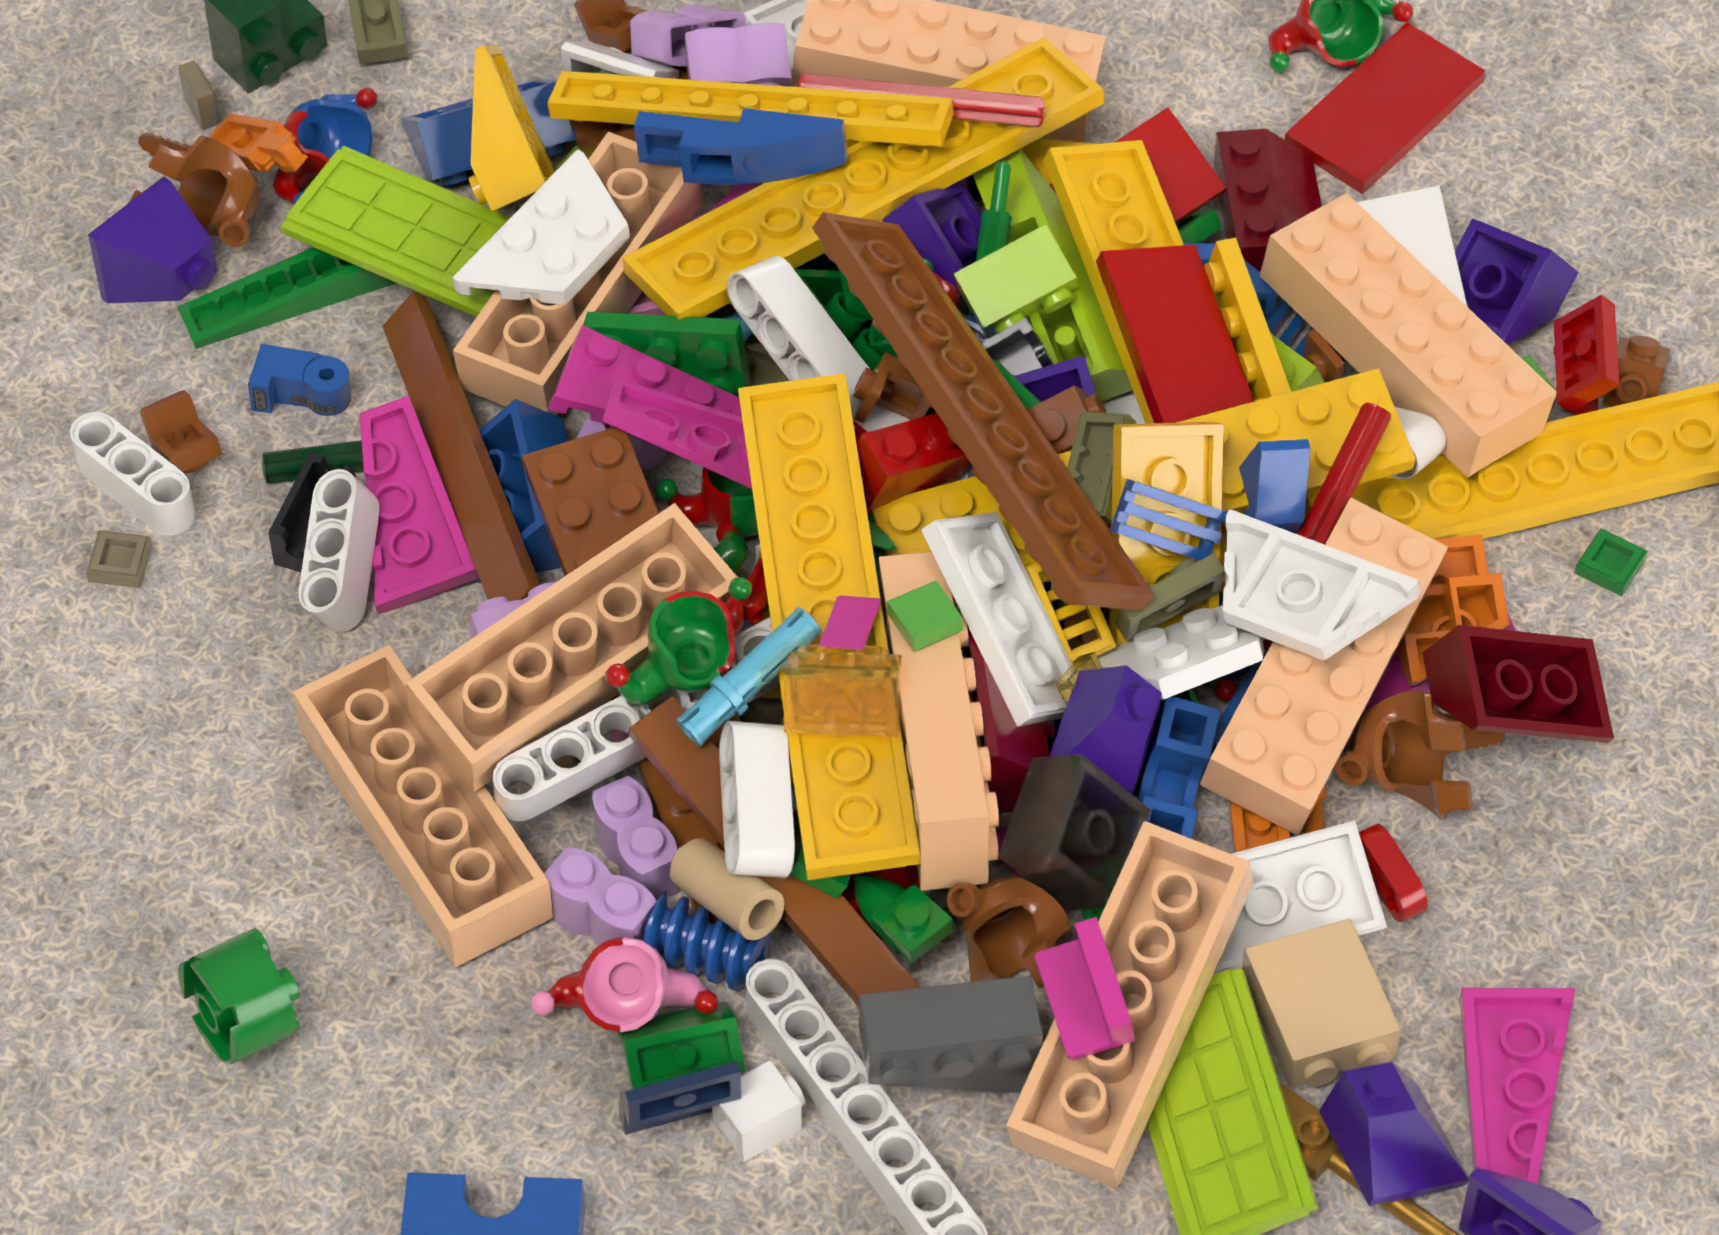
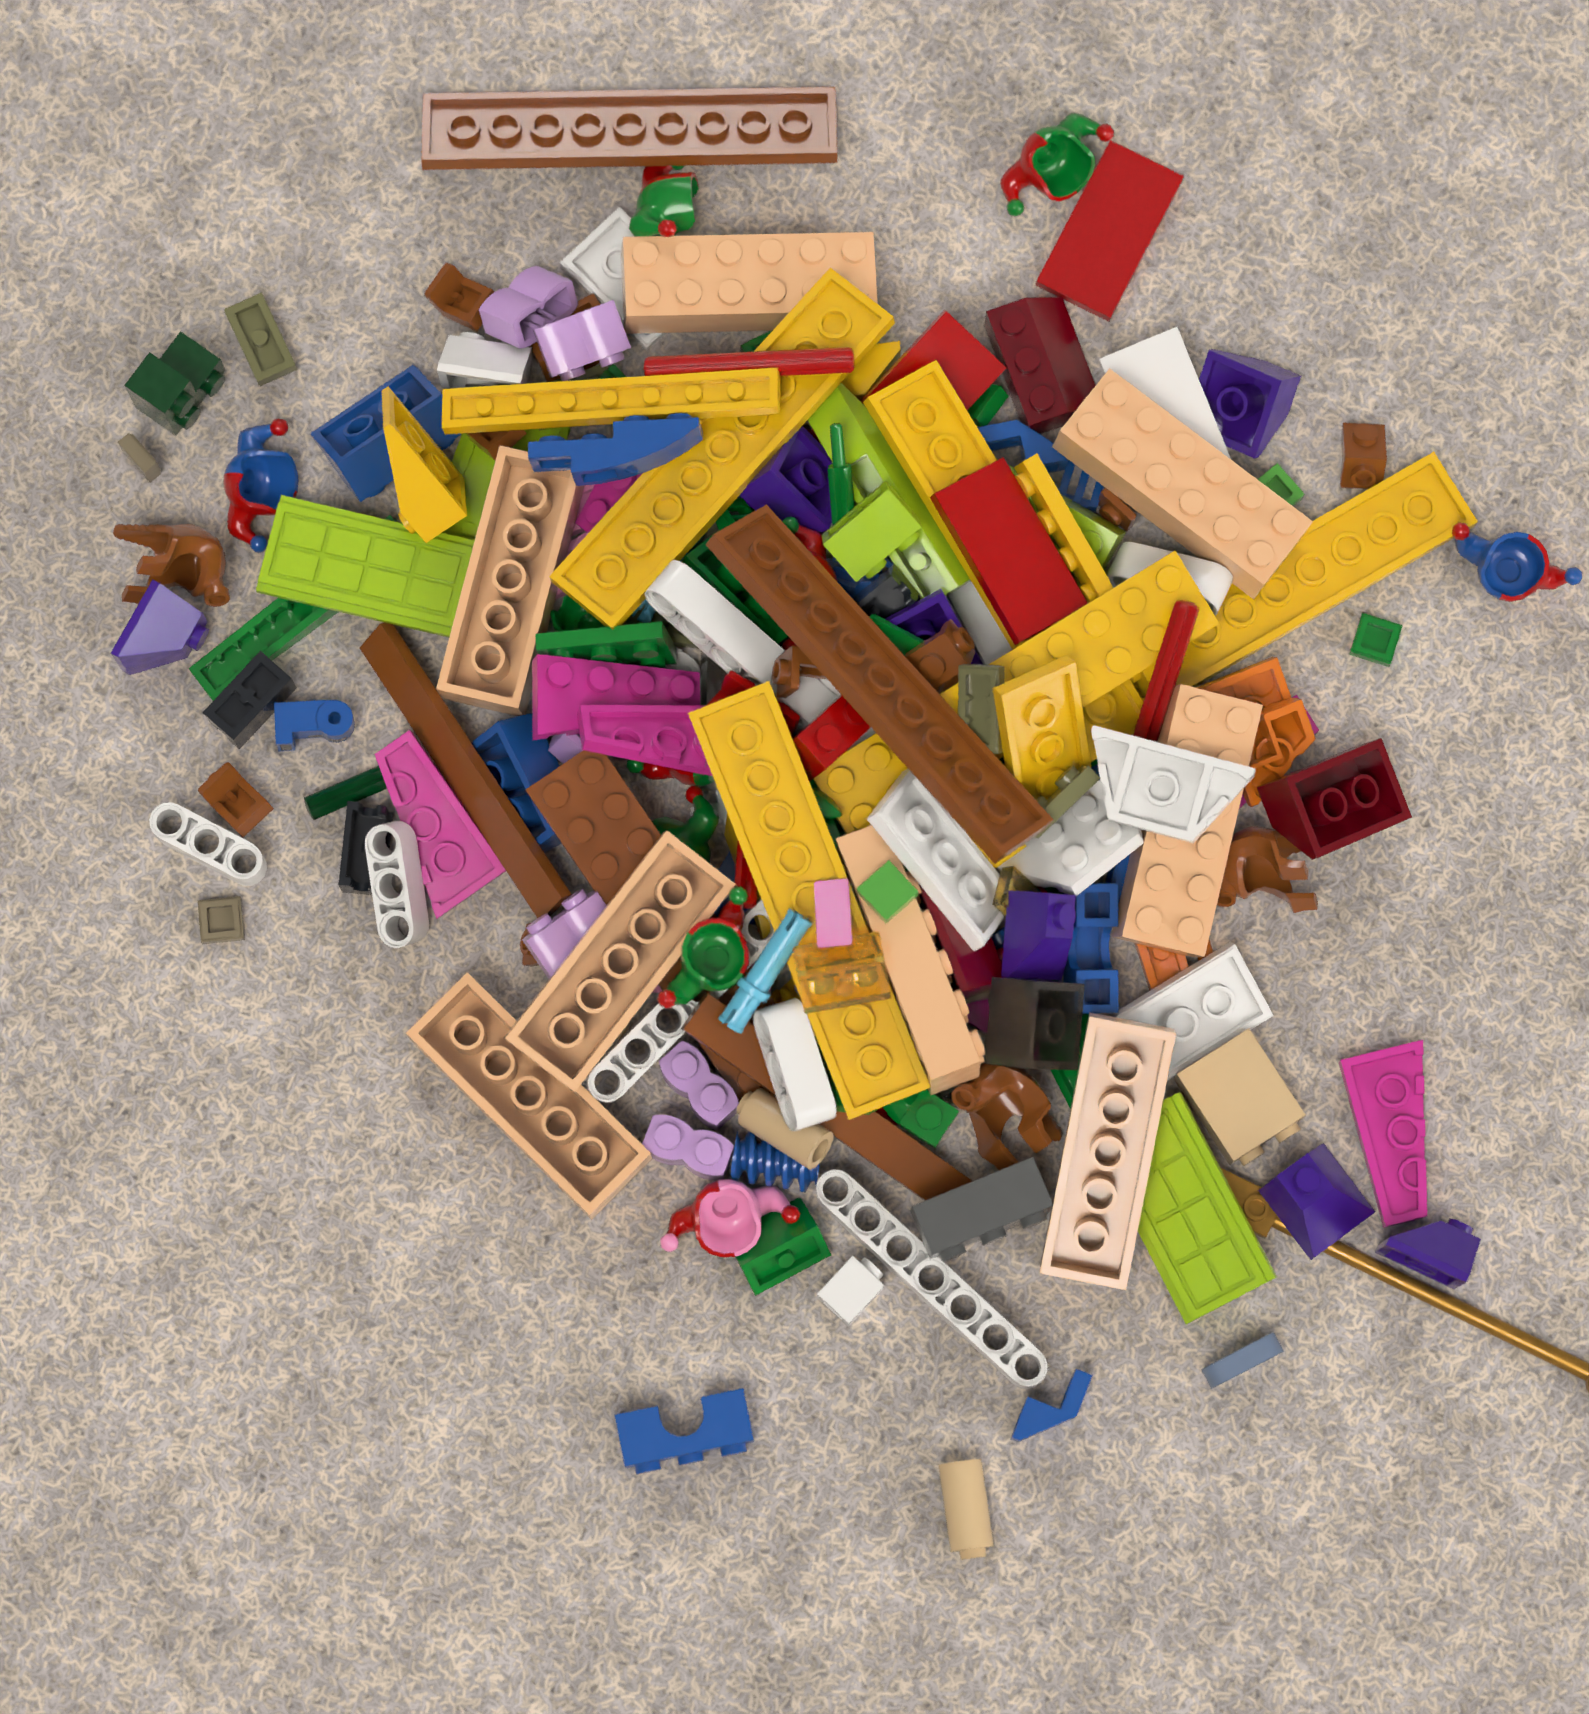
camera: 15 degrees left, 25 degrees up
(227, 342) = (249, 699): none -> black hinge
(240, 996) = (446, 1299): green brick -> none
(260, 143) = (203, 505): orange hinge -> none
(551, 241) = (486, 568): white wing -> none
(679, 1097) = (794, 1301): dark blue slope -> none
(1085, 993) = (1076, 1166): dark pink panel -> none
(1208, 534) = (1048, 754): tile -> none
(1277, 482) = (1119, 689): slope -> none
(1392, 874) = (1267, 970): red beam -> none
(1586, 355) = (1323, 460): red bracket -> none

